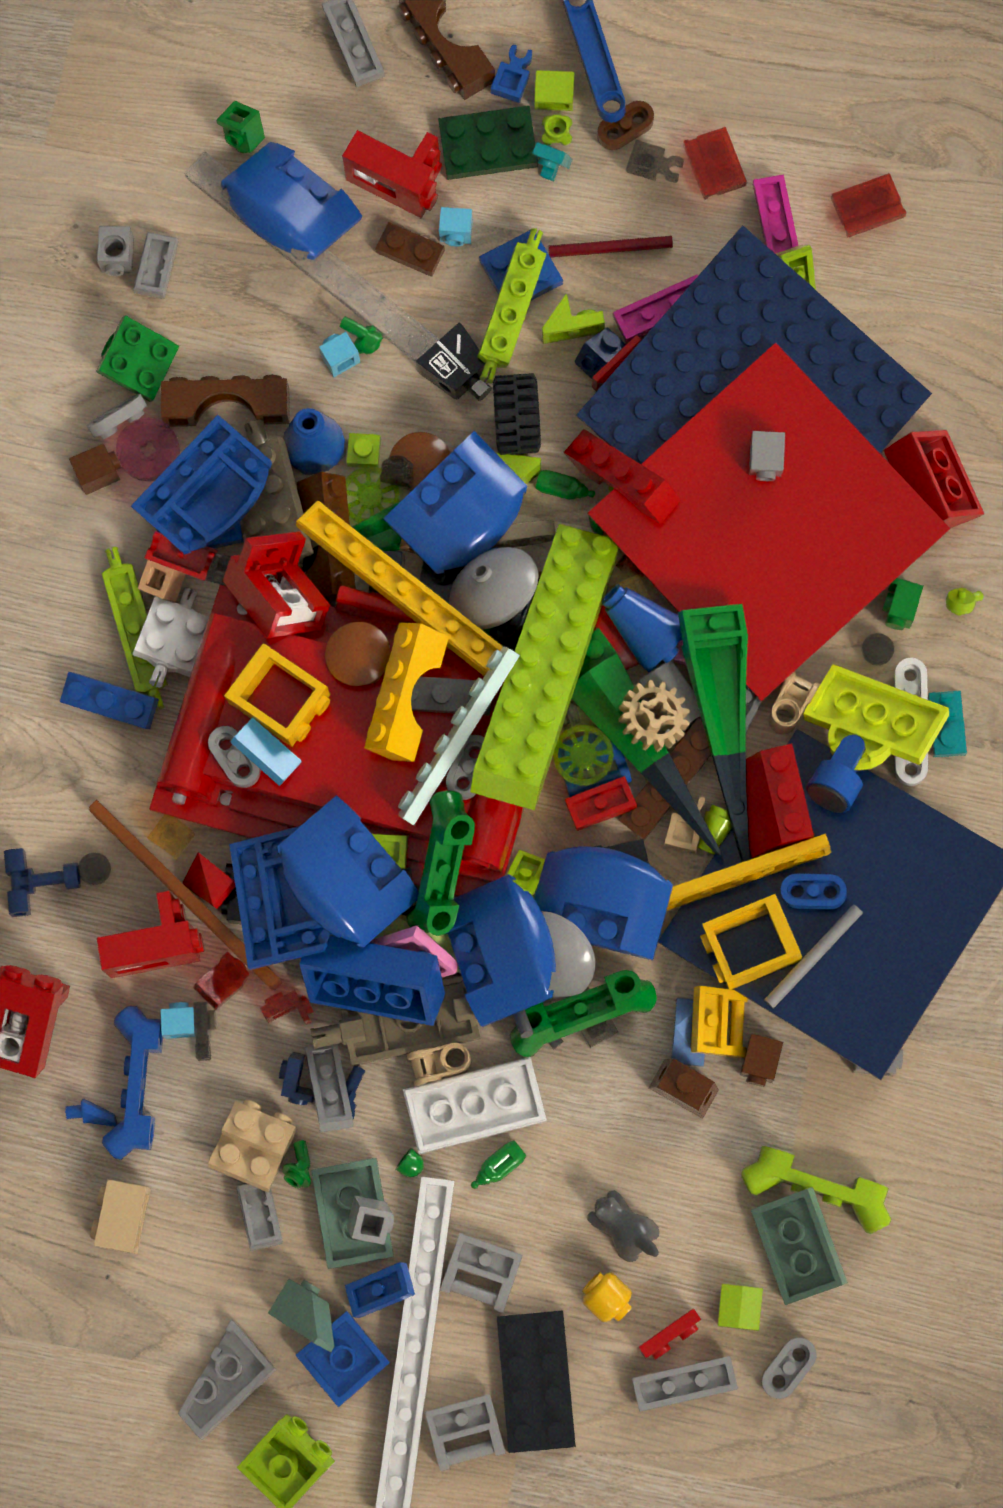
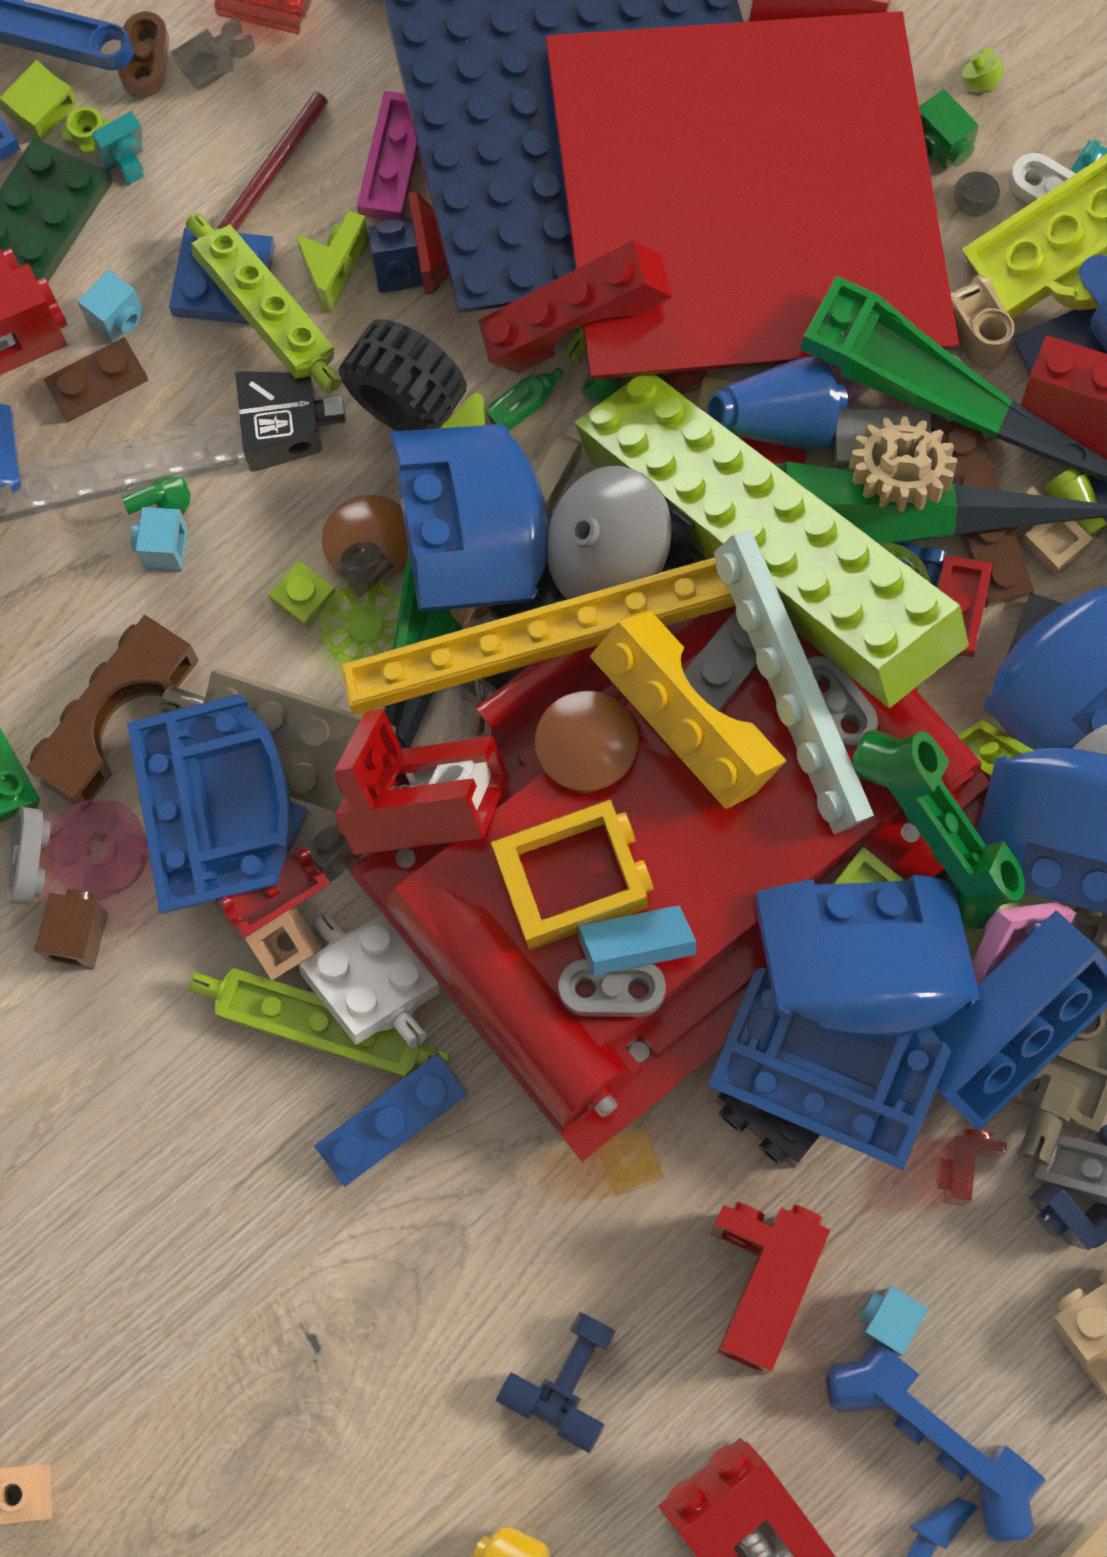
camera: 55 degrees left, 5 degrees down
(94, 868) = (602, 1294): clear smoke plate -> none
(180, 891) = (713, 1198): dark orange tile -> none
(203, 1024) = (917, 1284): clear smoke plate -> none
(208, 881) = (732, 1151): red slope -> none
(222, 981) = (874, 1225): clear red bracket -> none
(314, 442) = (247, 637): blue cone -> none
(327, 571) = (423, 719): reddish brown arch -> none
(766, 455) = (676, 128): light grey brick -> none

